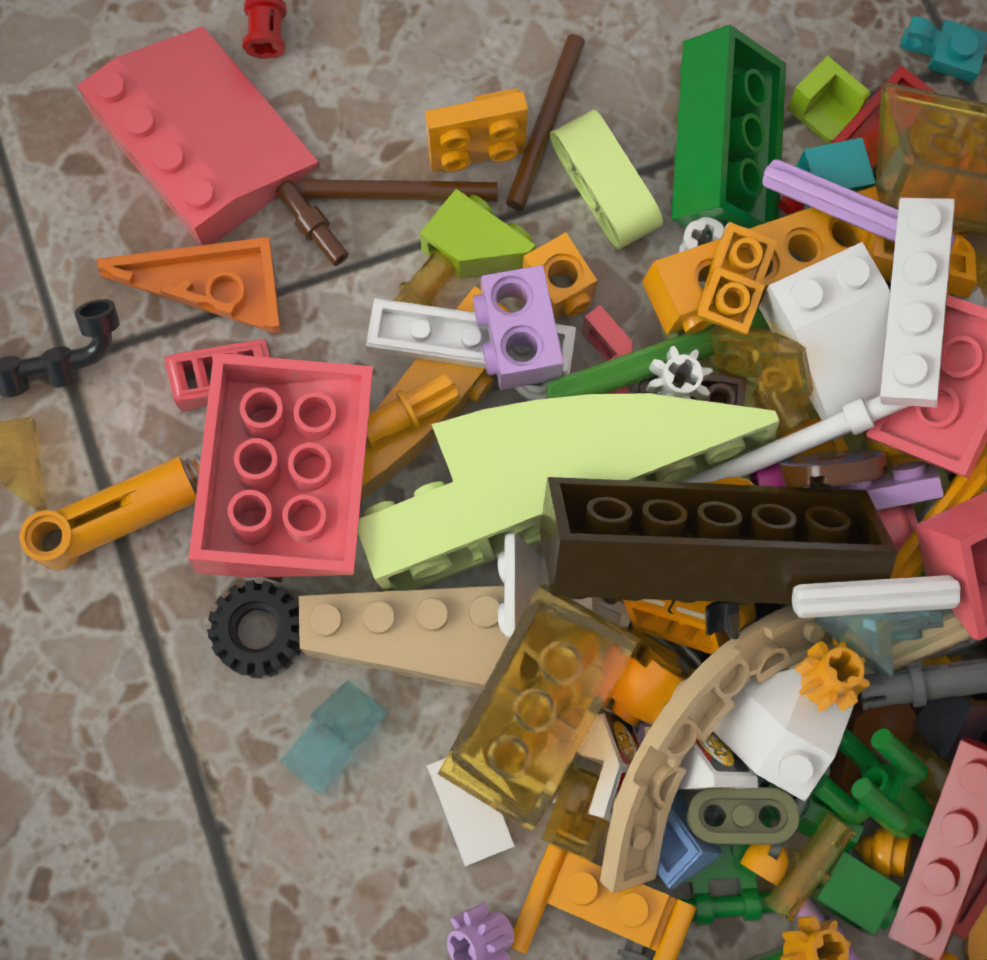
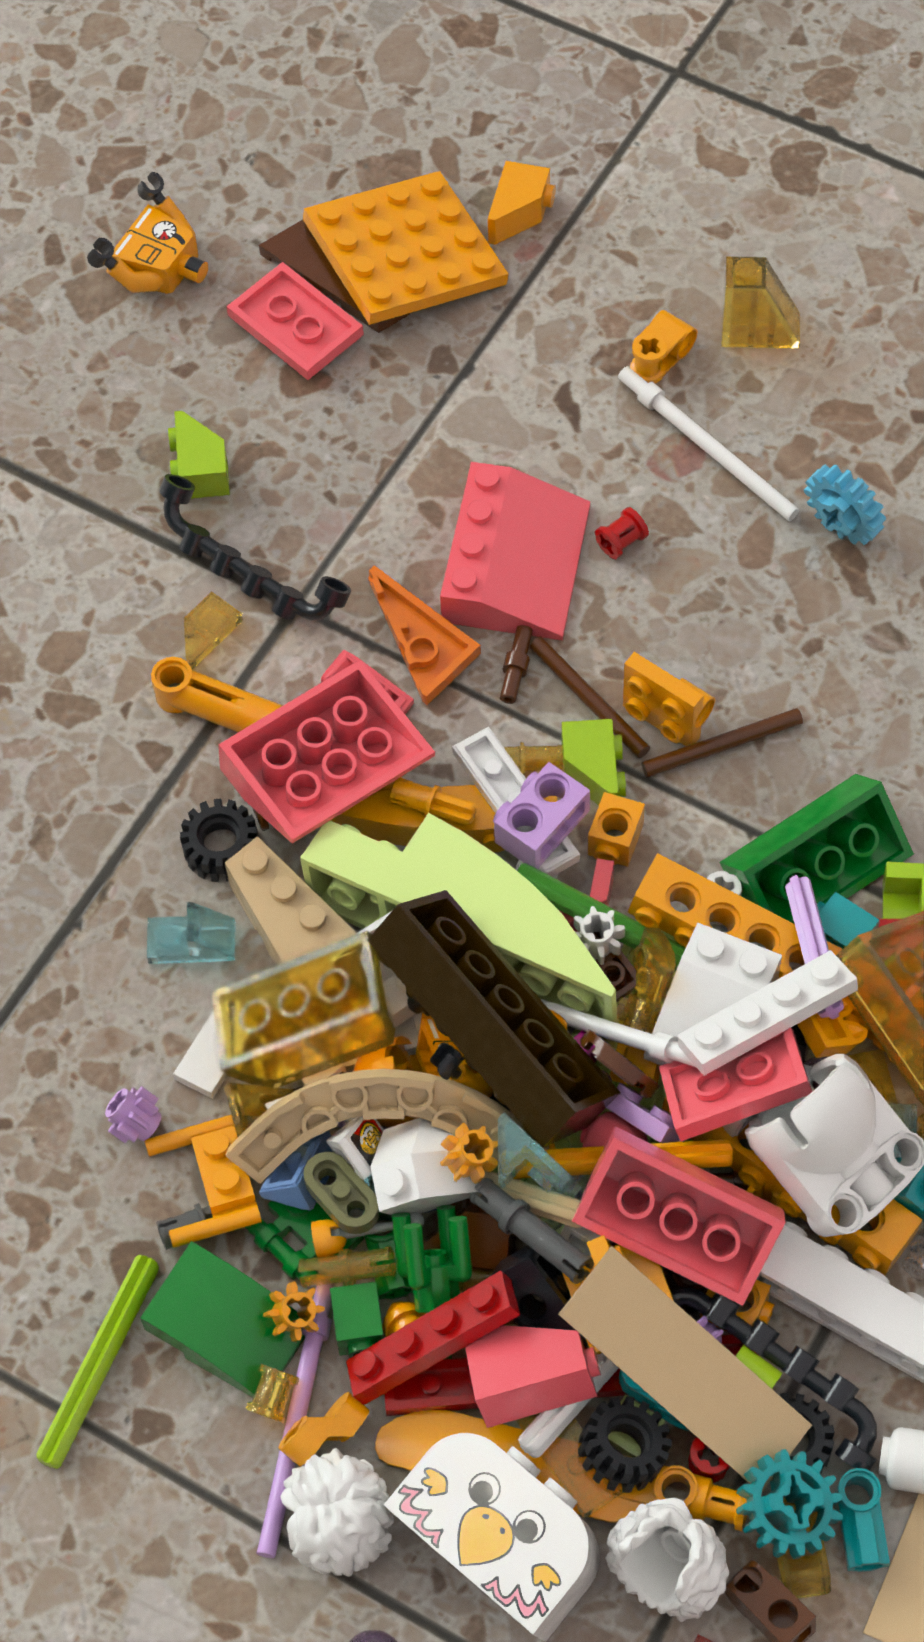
camera: 55 degrees right, 15 degrees down
(606, 179) = (712, 806): yellowish green beam -> none
(736, 278) = (679, 909): light orange slope -> none
(875, 596) = (538, 1127): white axle -> none

